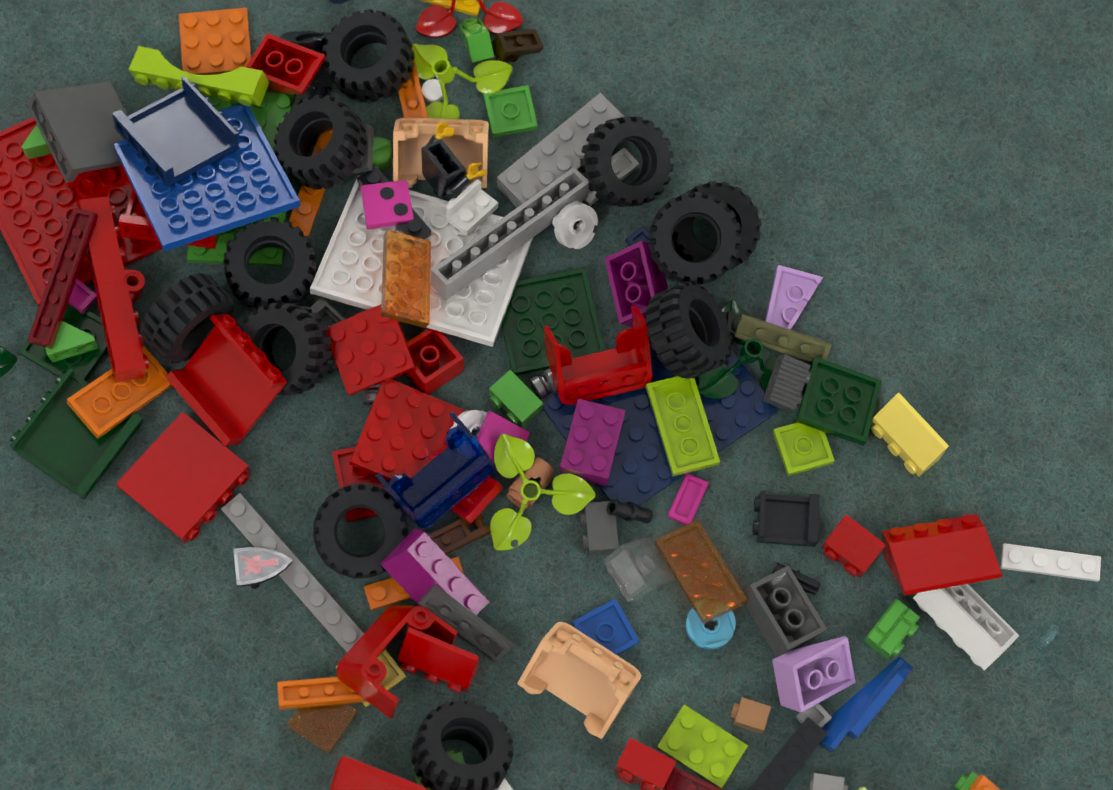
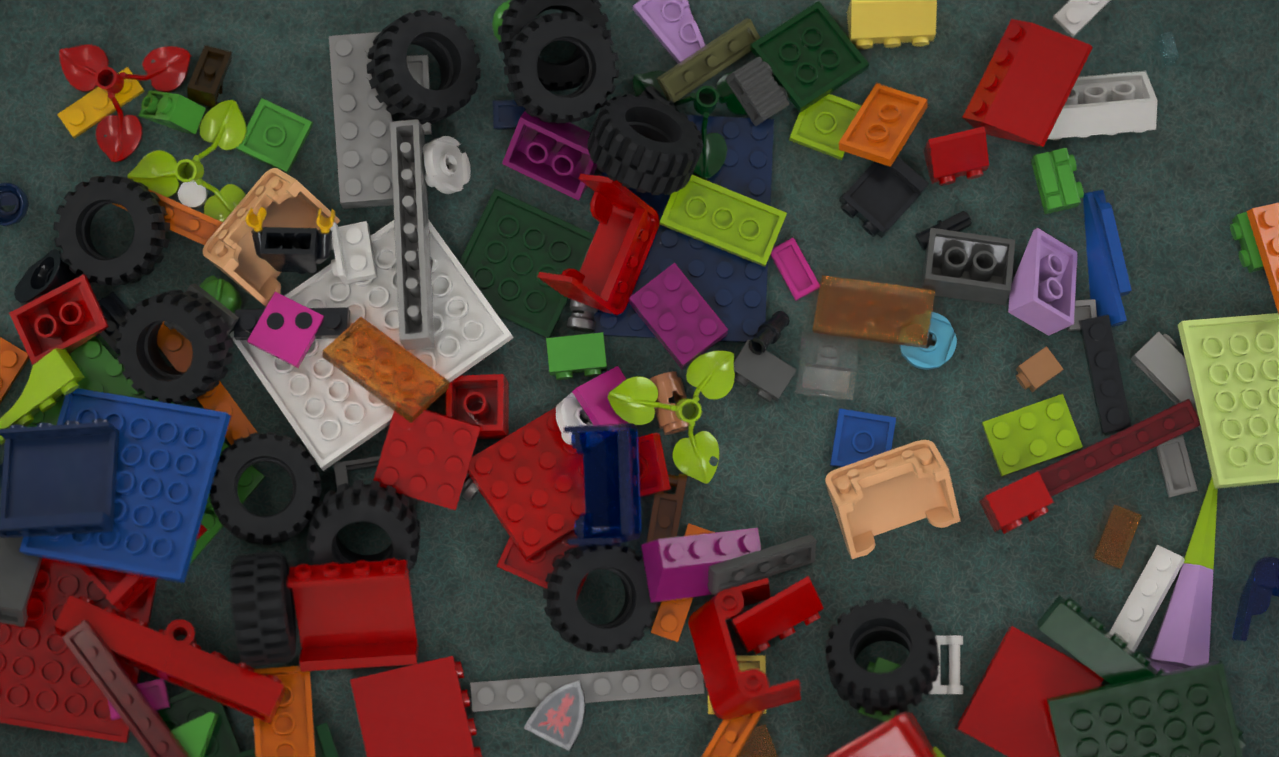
camera: 50 degrees left, 10 degrees up
(832, 481) = (883, 124): none -> orange plate

